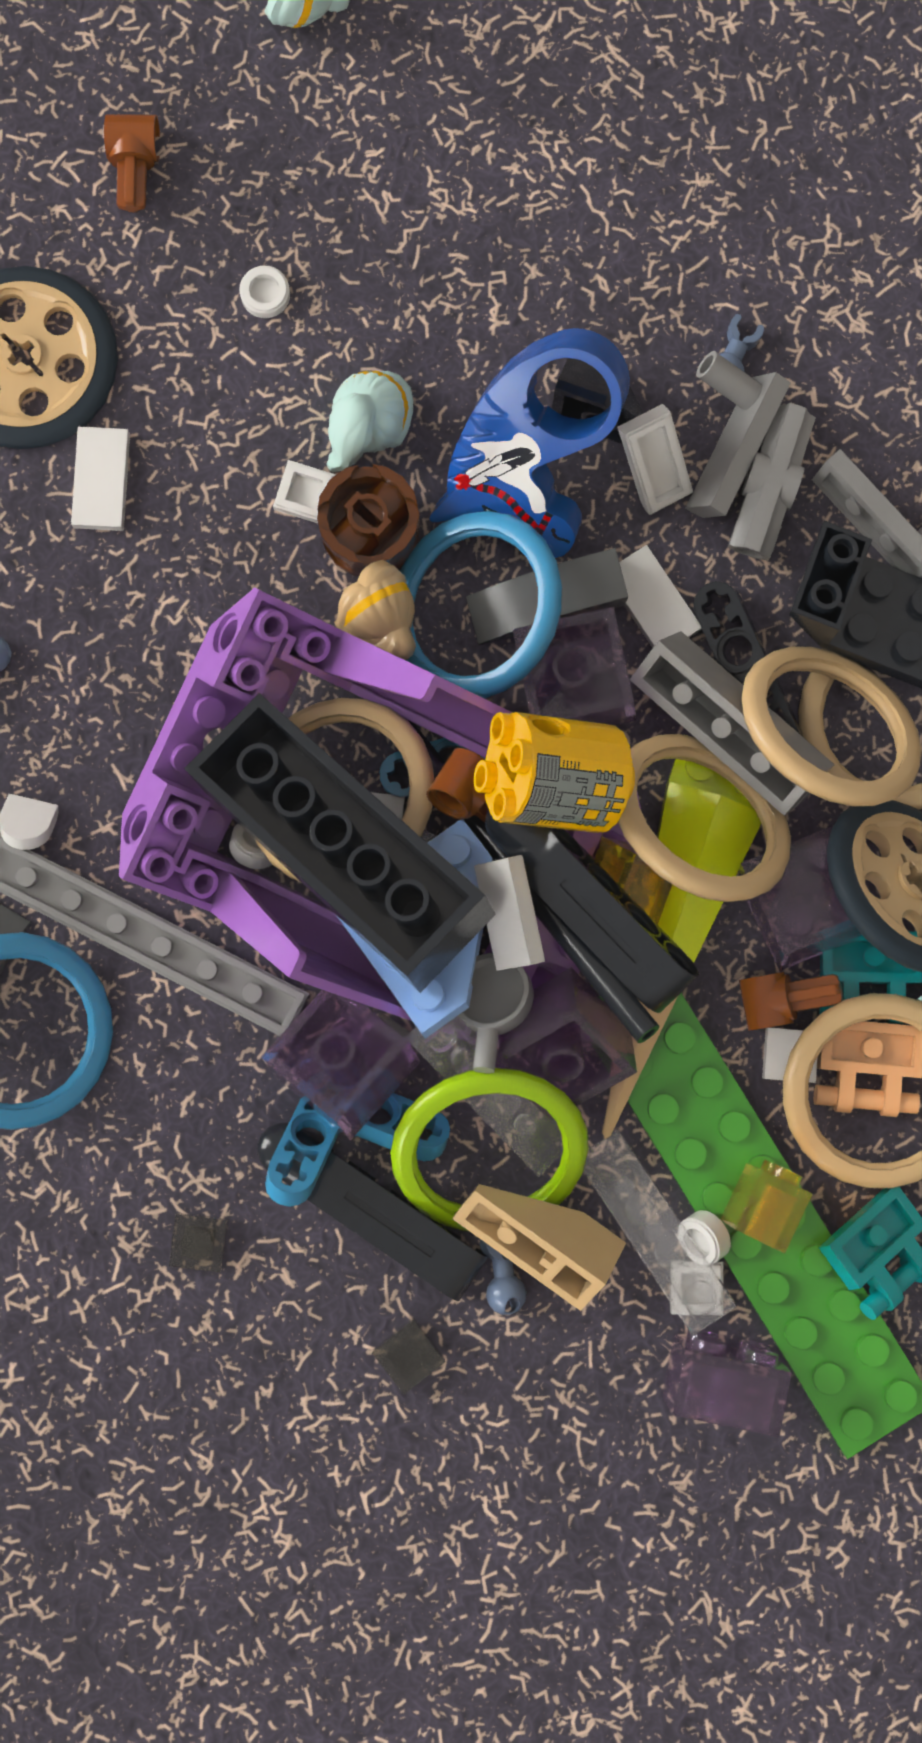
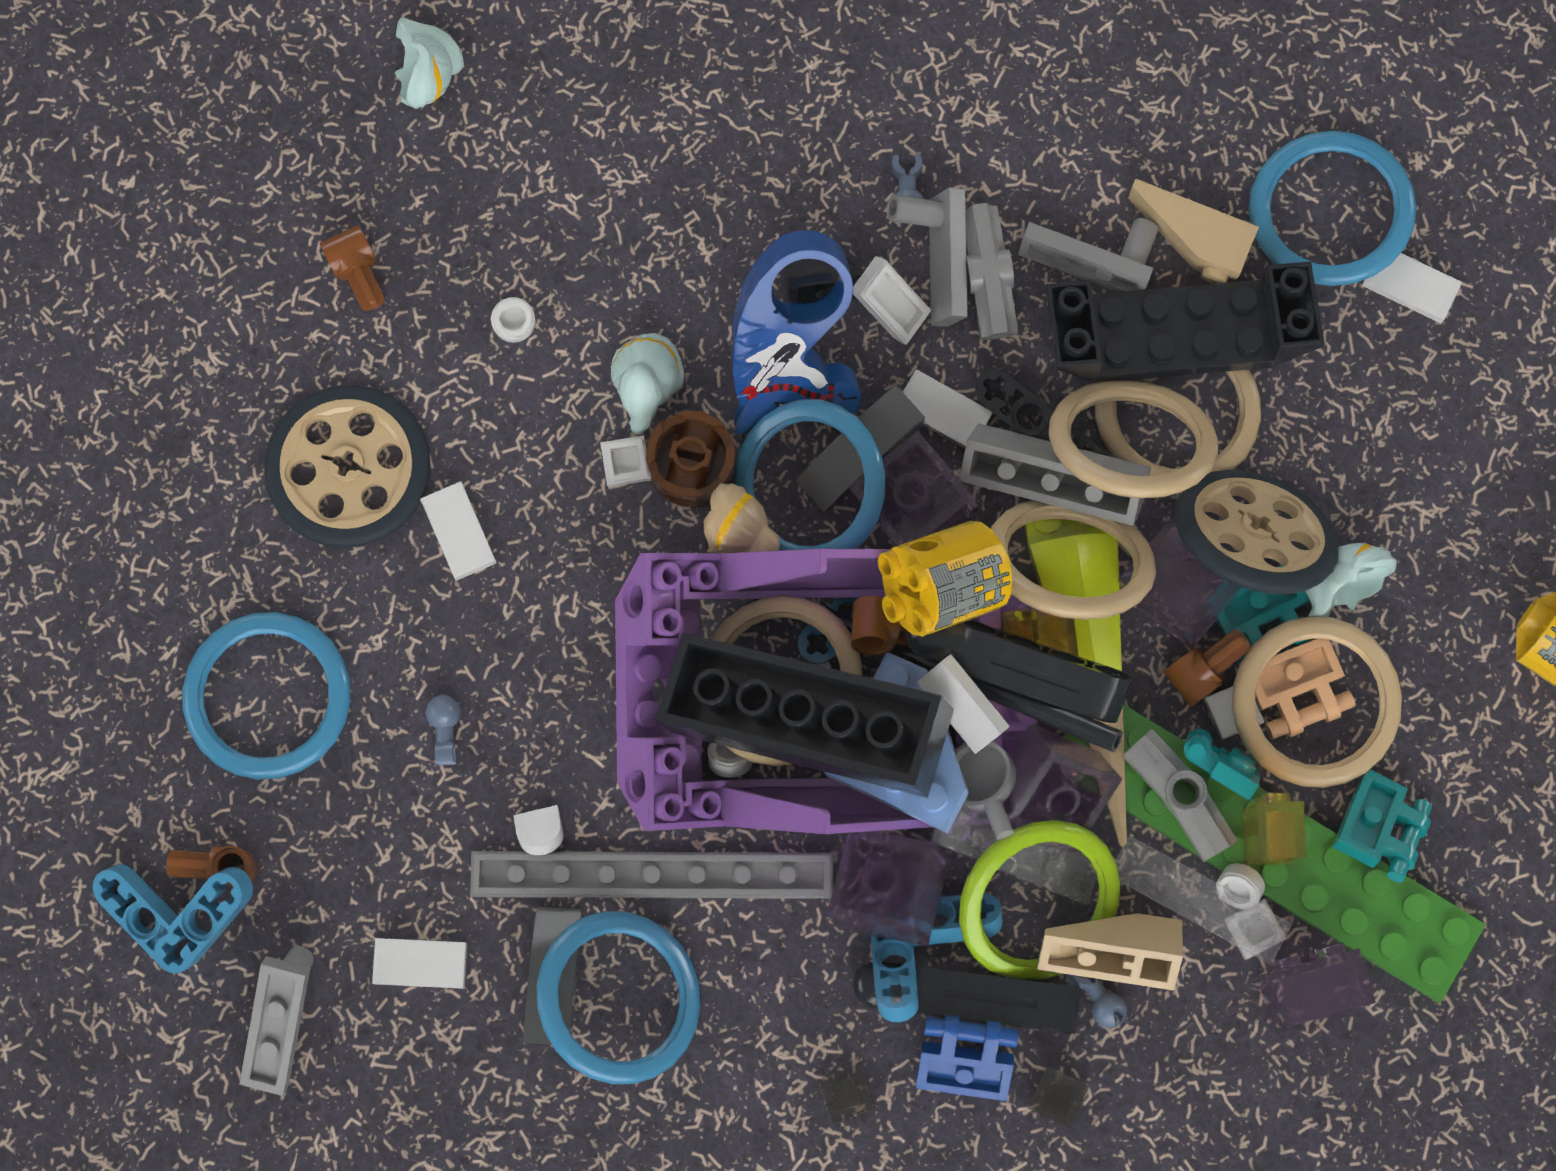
camera: 20 degrees left, 5 degrees down
(330, 1281) = (966, 1069): none -> blue plate
(697, 1151) = (1198, 820): none -> light grey piece
(753, 1114) = (1231, 768): none -> teal plate

